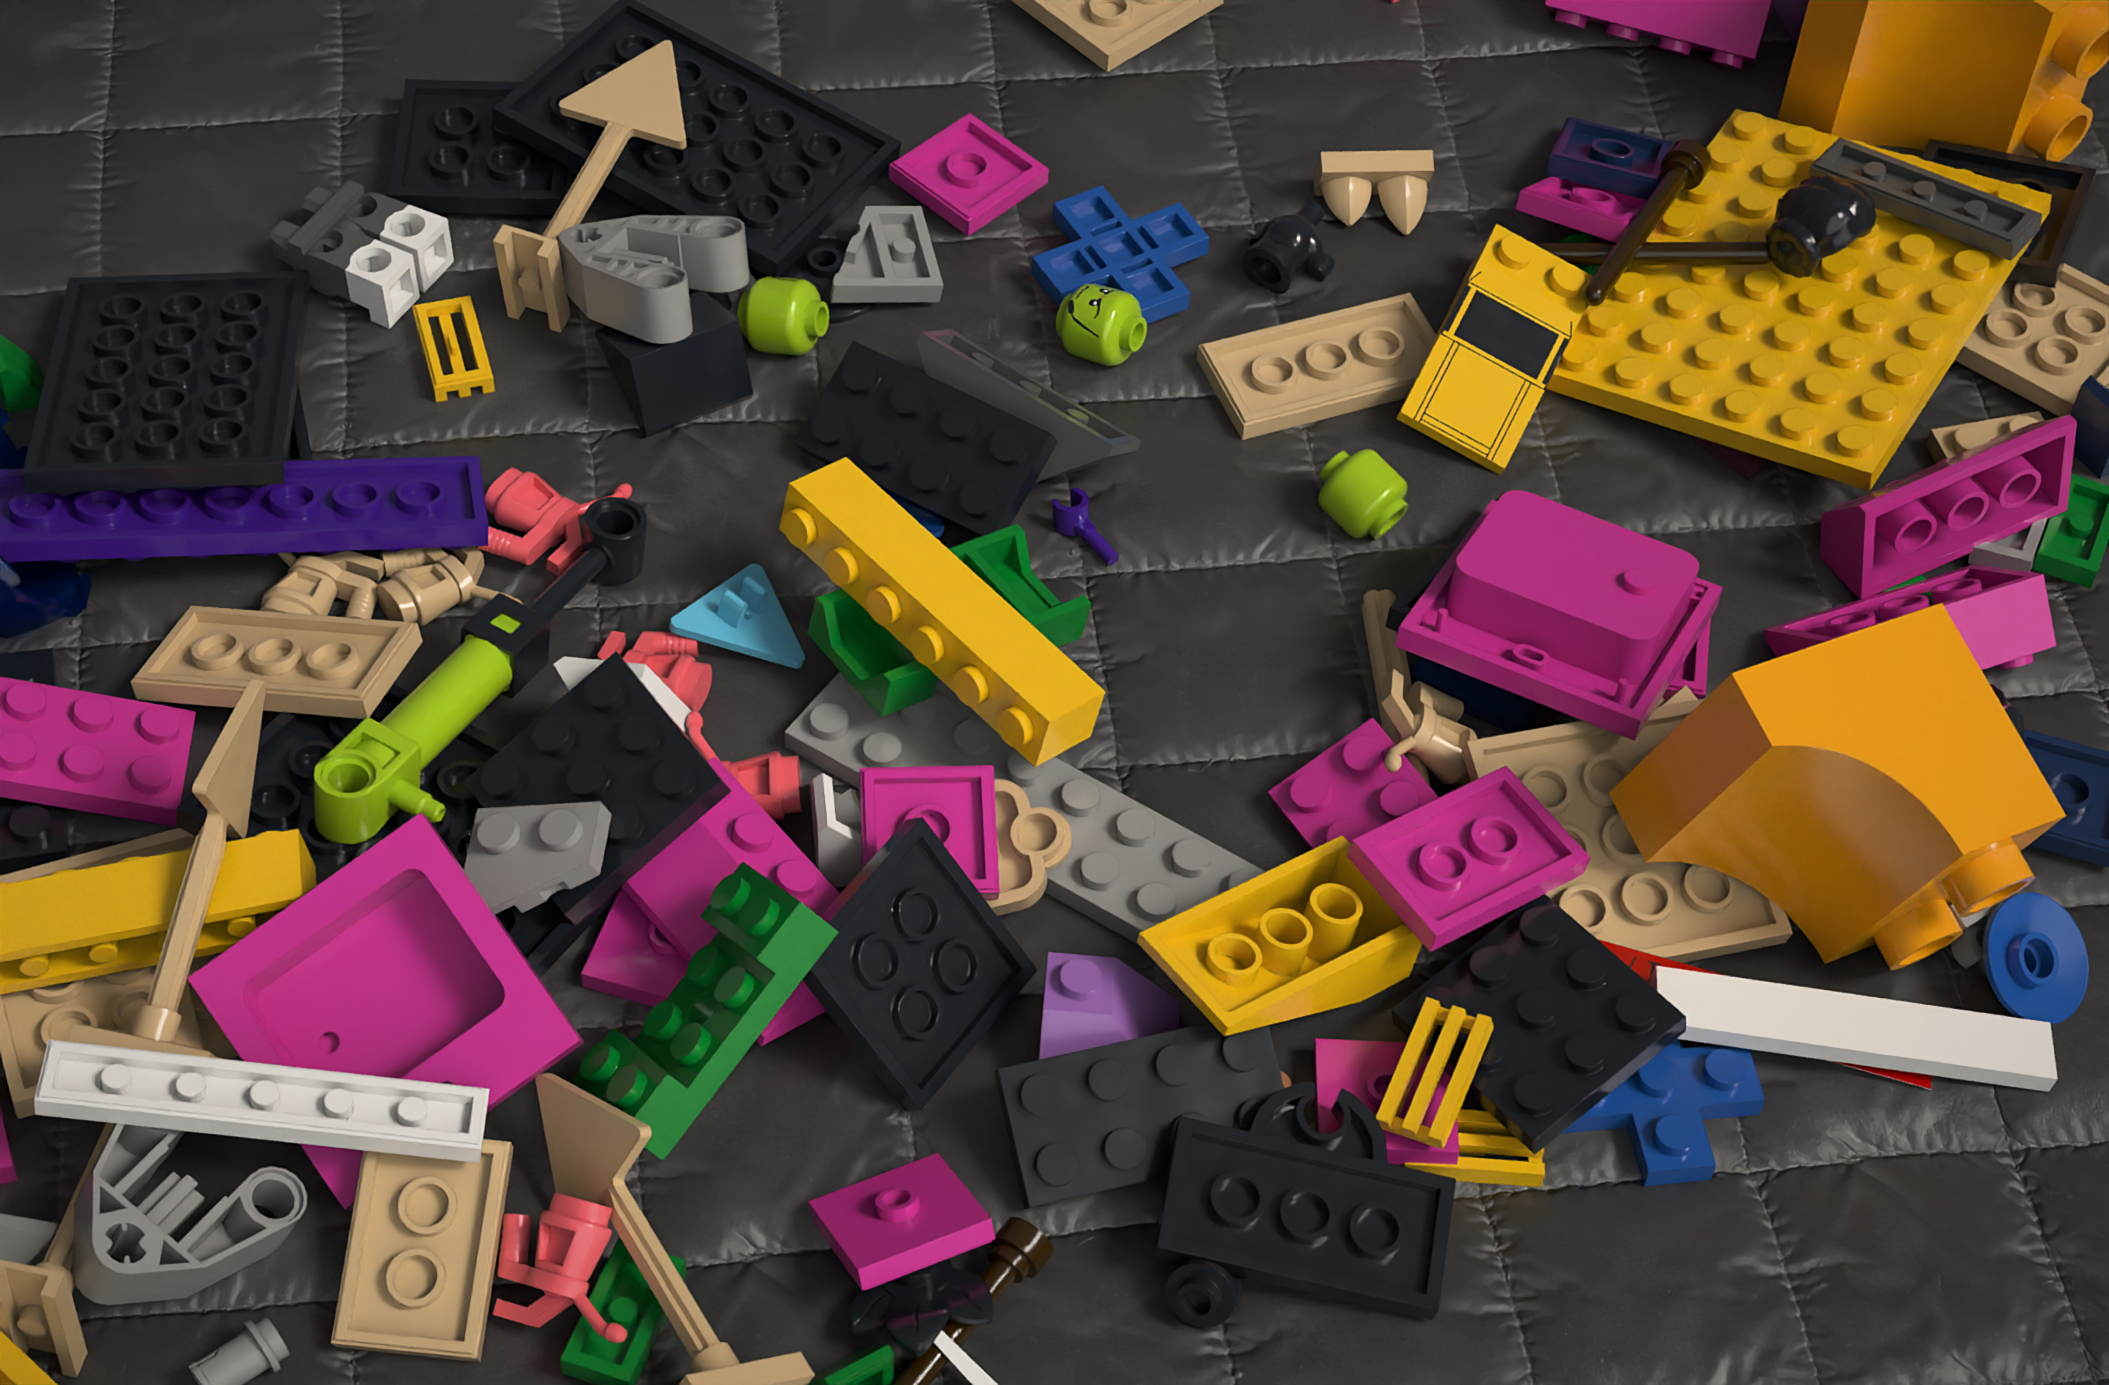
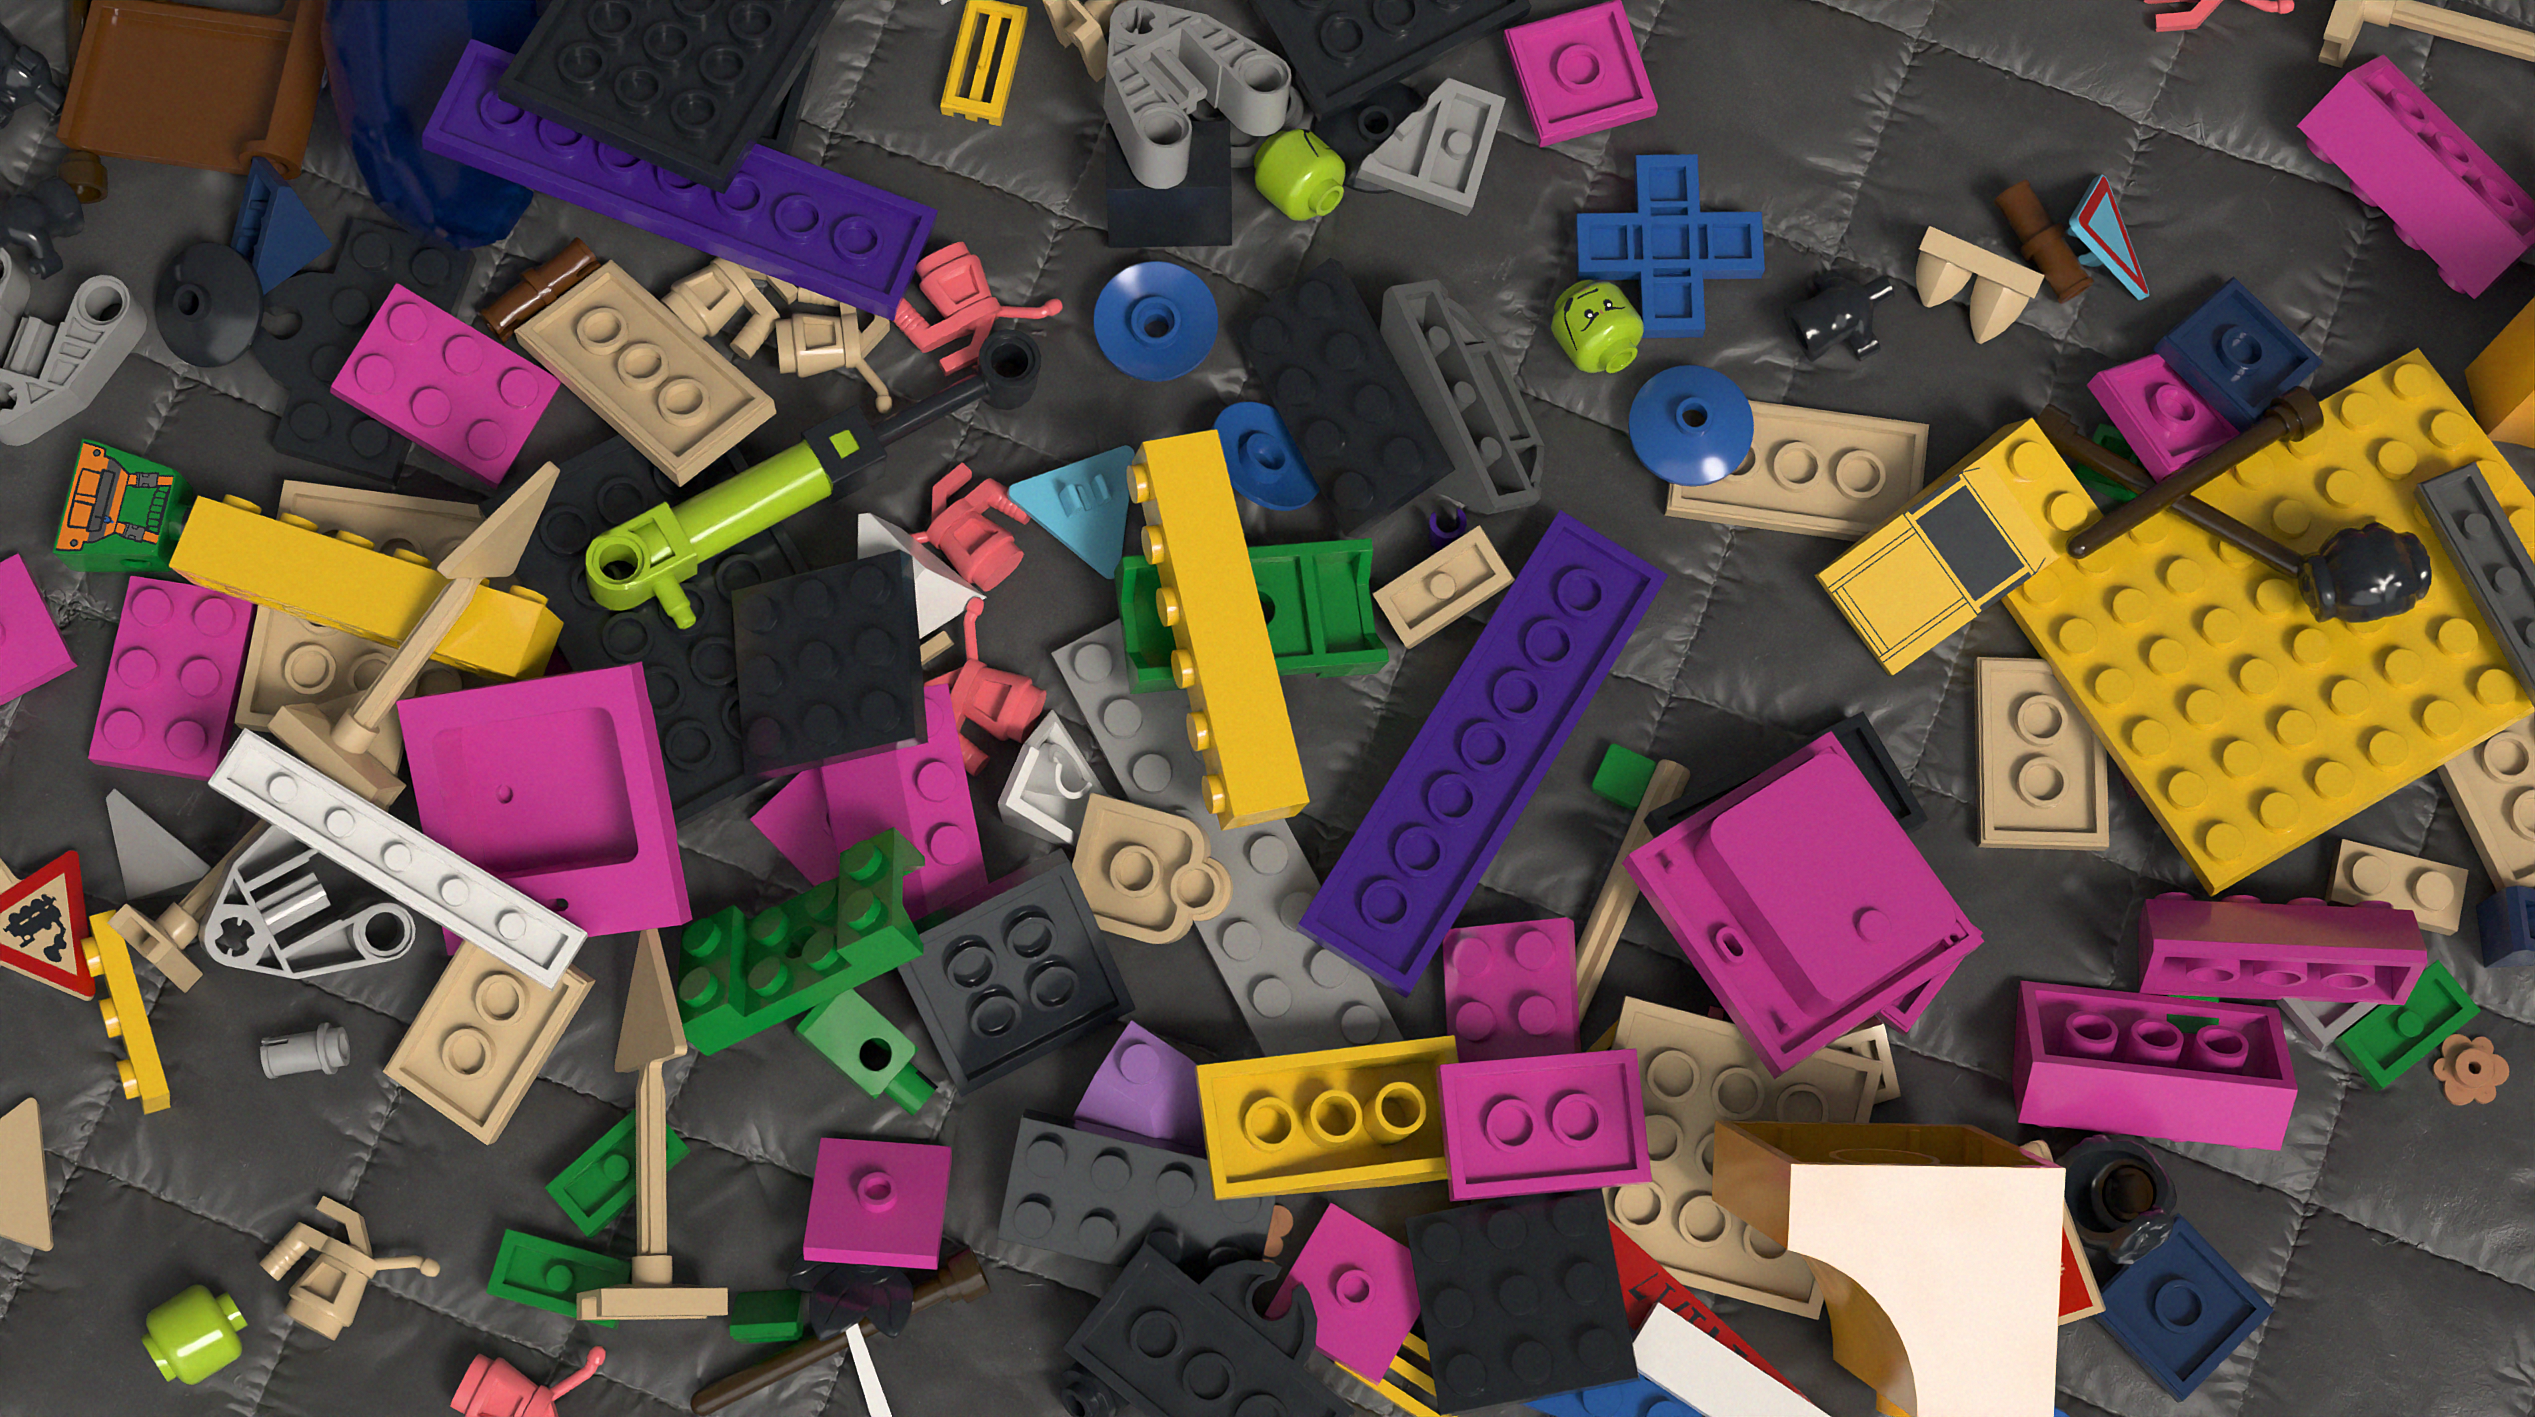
camera: 30 degrees right, 25 degrees up
(134, 647) = (539, 289): none -> reddish brown pin
(535, 850) = (732, 715): light grey wing -> none
(566, 1253) = (584, 1105): coral piece -> none
(724, 459) = (1152, 294): none -> blue dish
(805, 1094) = (845, 1024): none -> torso
(952, 801) = (1108, 837): dark pink plate -> none
(1099, 543) = (1444, 587): none -> tan plate
(1215, 650) = (1481, 754): none -> dark purple plate
(1223, 361) = (1684, 452): none -> blue dish
(1339, 626) = (1623, 777): none -> green piece
(1362, 493) = (1727, 648): lime head -> none
(1390, 135) = (2043, 241): none -> reddish brown pin
(1426, 728) = (1611, 952): tan piece -> none
(1453, 1022) = (1346, 1343): yellow tile -> none
(1464, 130) = (2103, 231): none -> medium azure piece
(1660, 478) = (2035, 761): none -> tan tile

